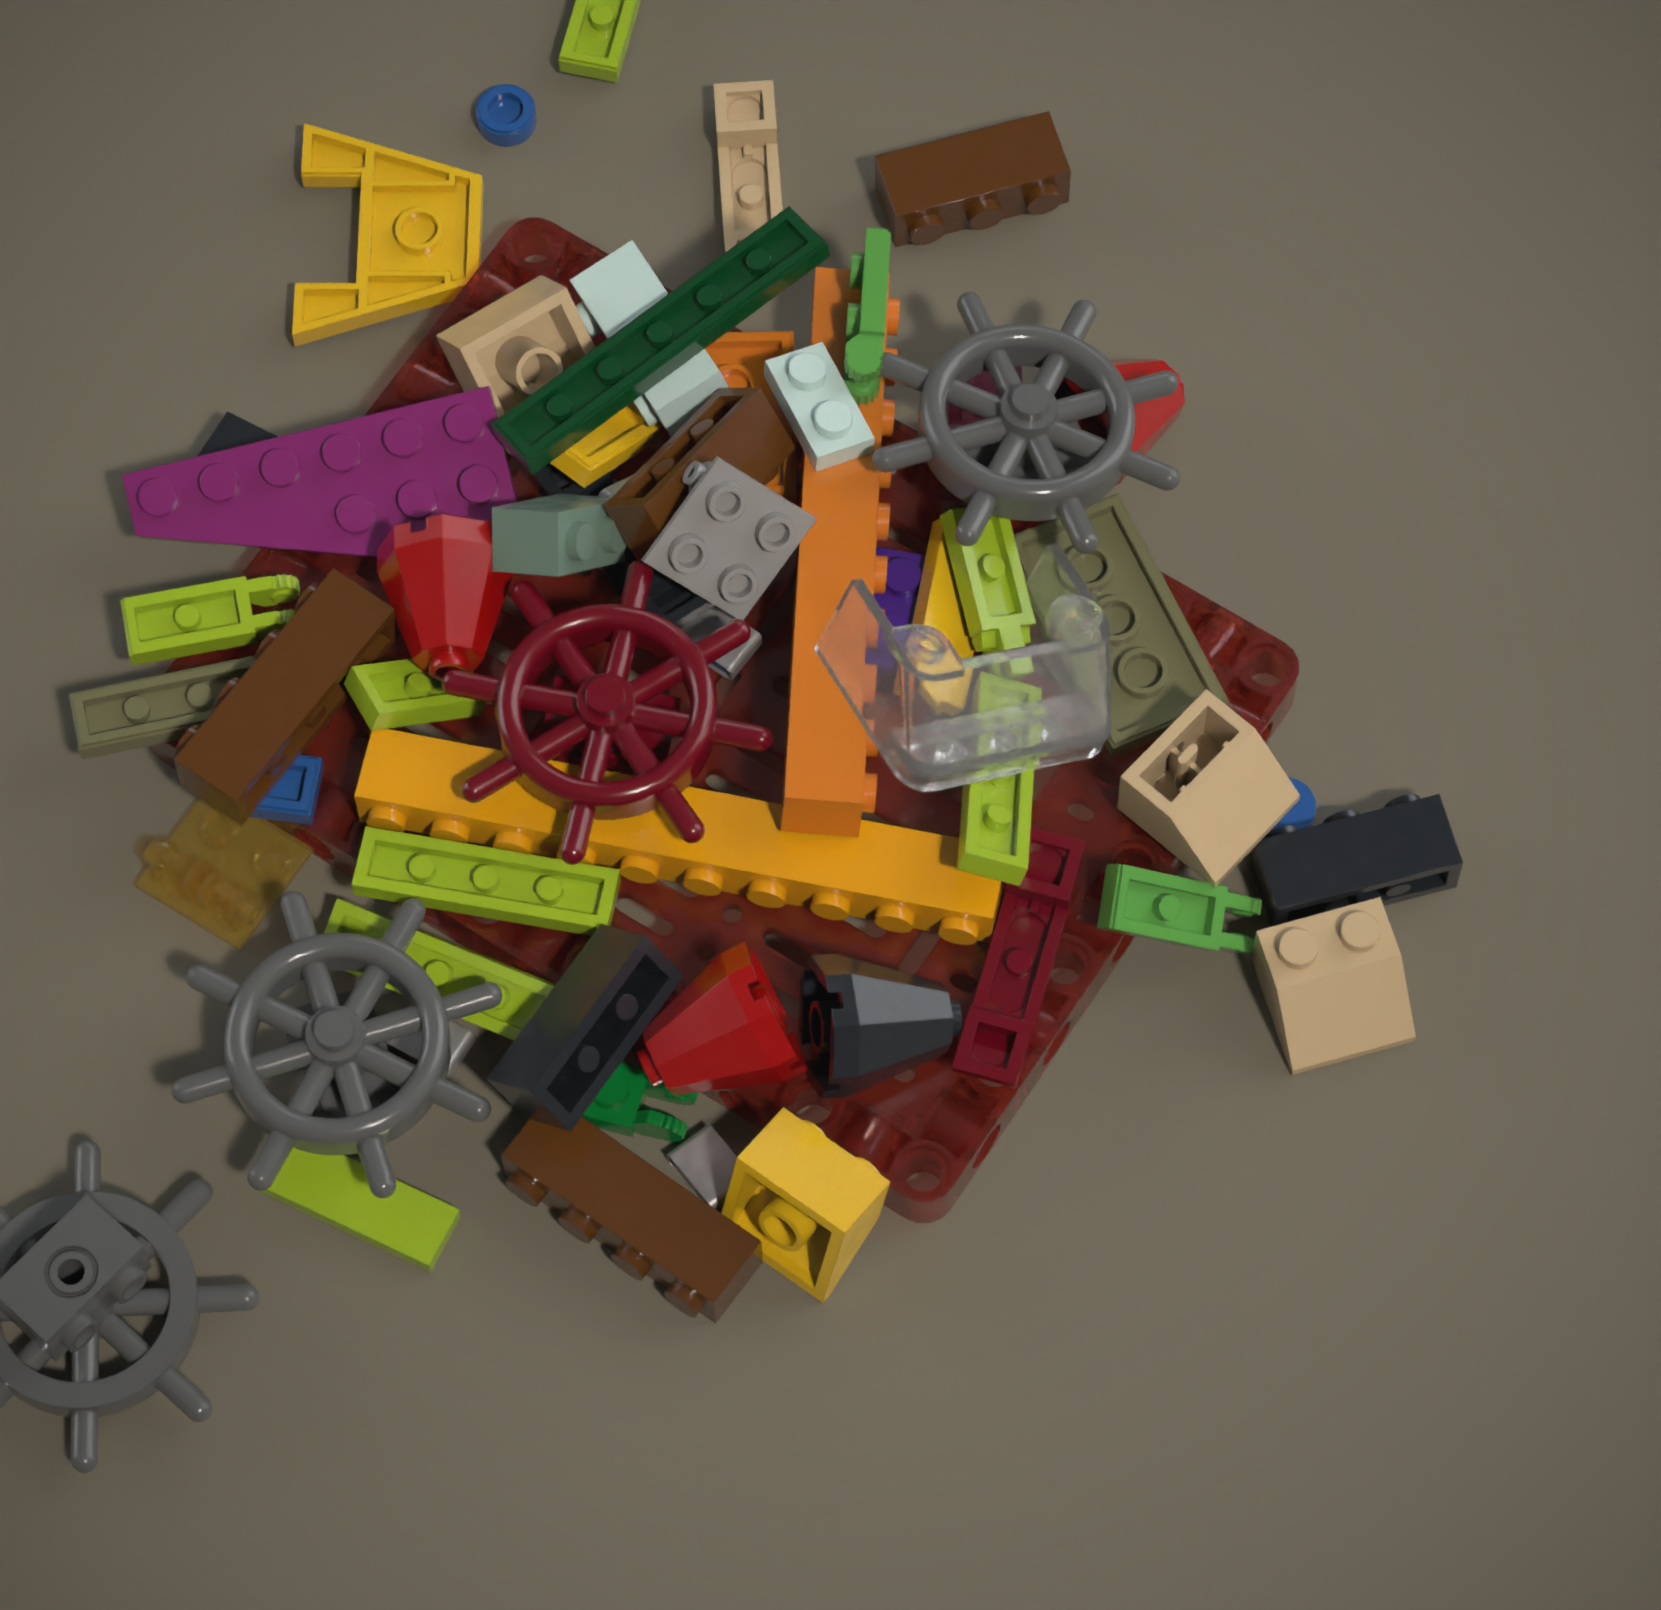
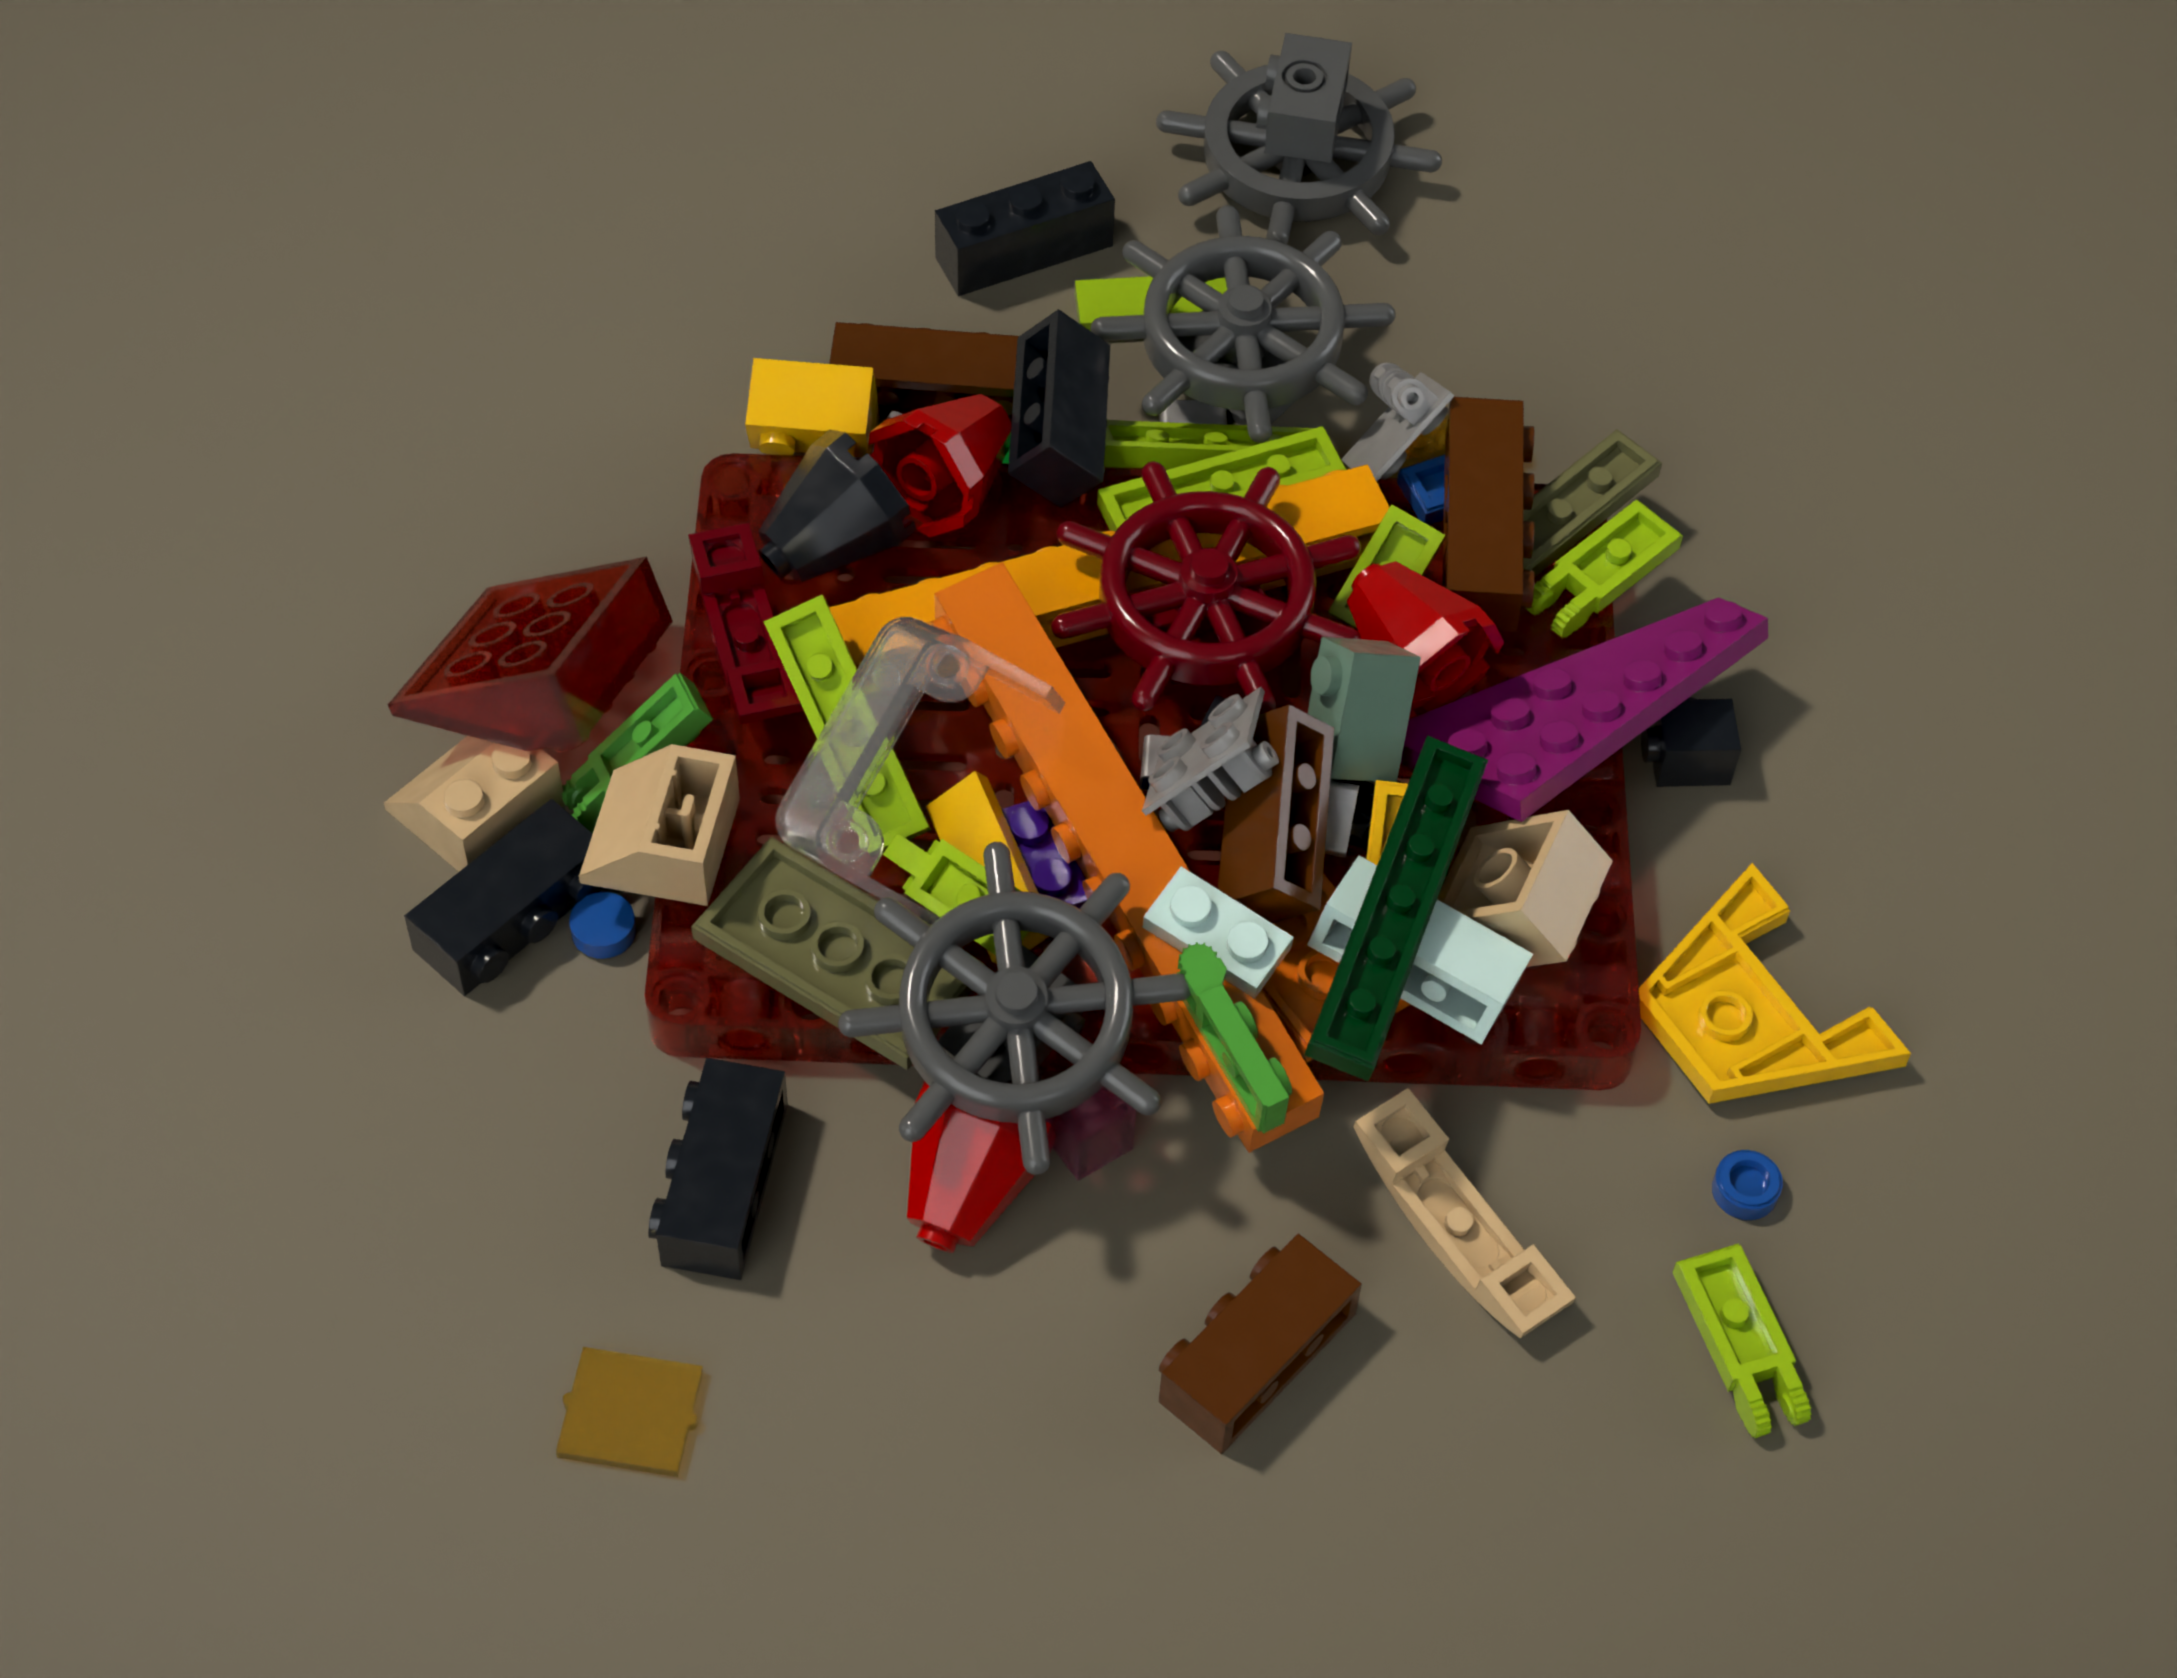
camera: 145 degrees right, 10 degrees down
(276, 847) = (1414, 409): none -> light grey hinge
(439, 1346) = (1024, 228): none -> black brick
(1221, 1057) = (540, 657): none -> clear red slope
(1306, 528) = (719, 1168): none -> black brick
(1476, 396) = (629, 1411): none -> clear yellow piece

